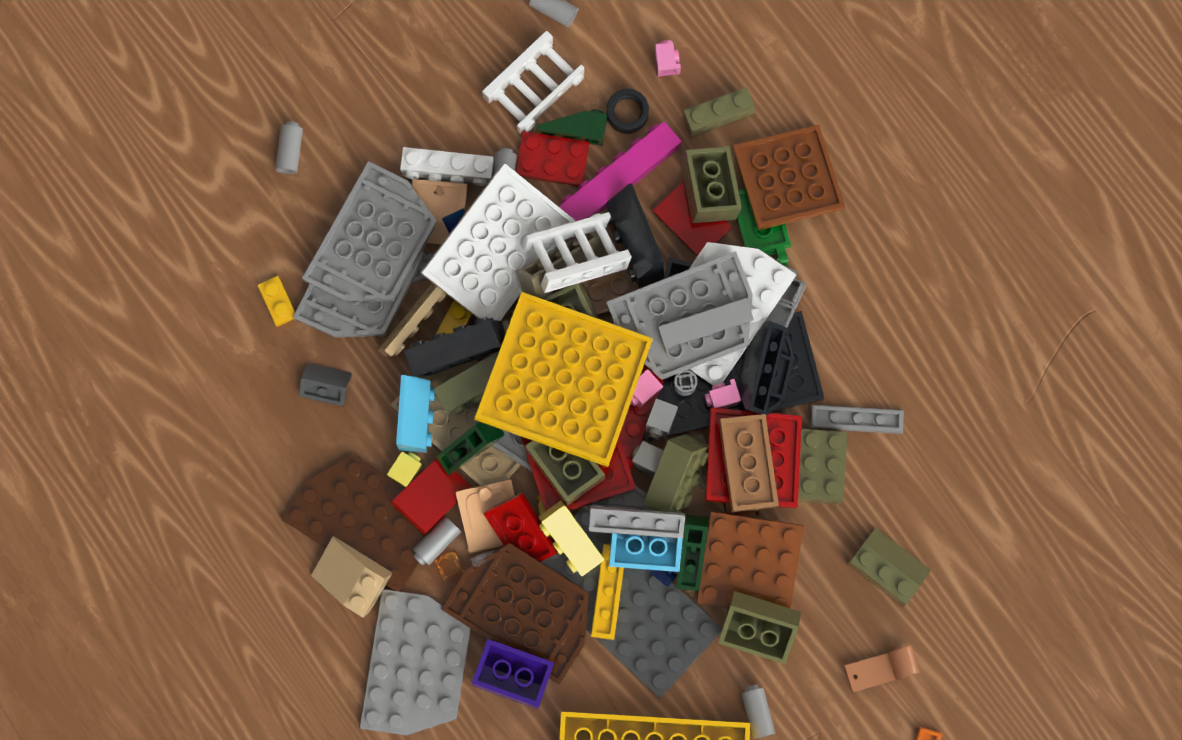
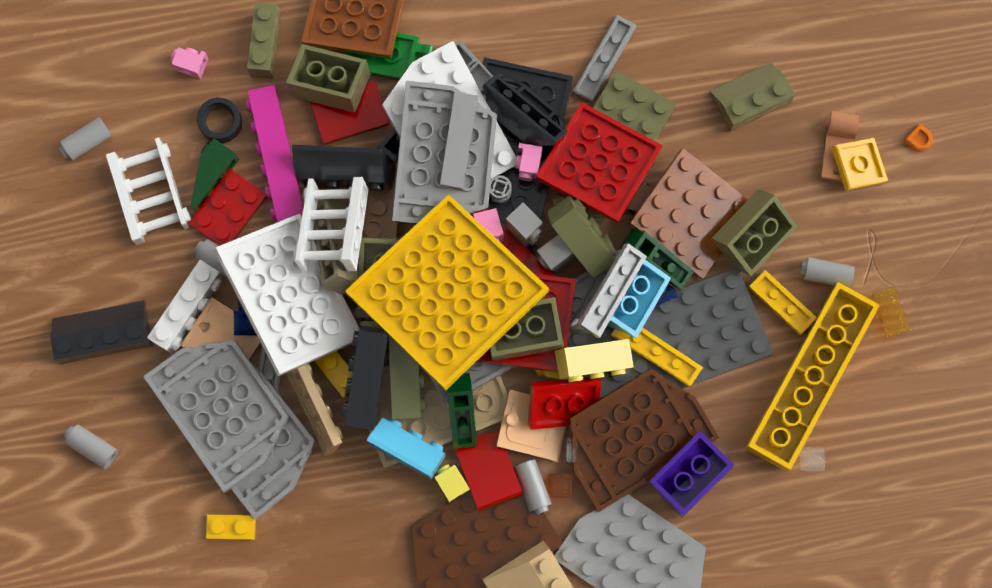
camera: 60 degrees left, 0 degrees up
(324, 384) = (333, 519): dark grey panel -> none
(391, 106) = (100, 332): none -> black slope
(710, 684) = (782, 302): none -> yellow plate
(748, 463) = (603, 166): medium nougat plate -> none
(874, 695) = (859, 164): none -> yellow tile

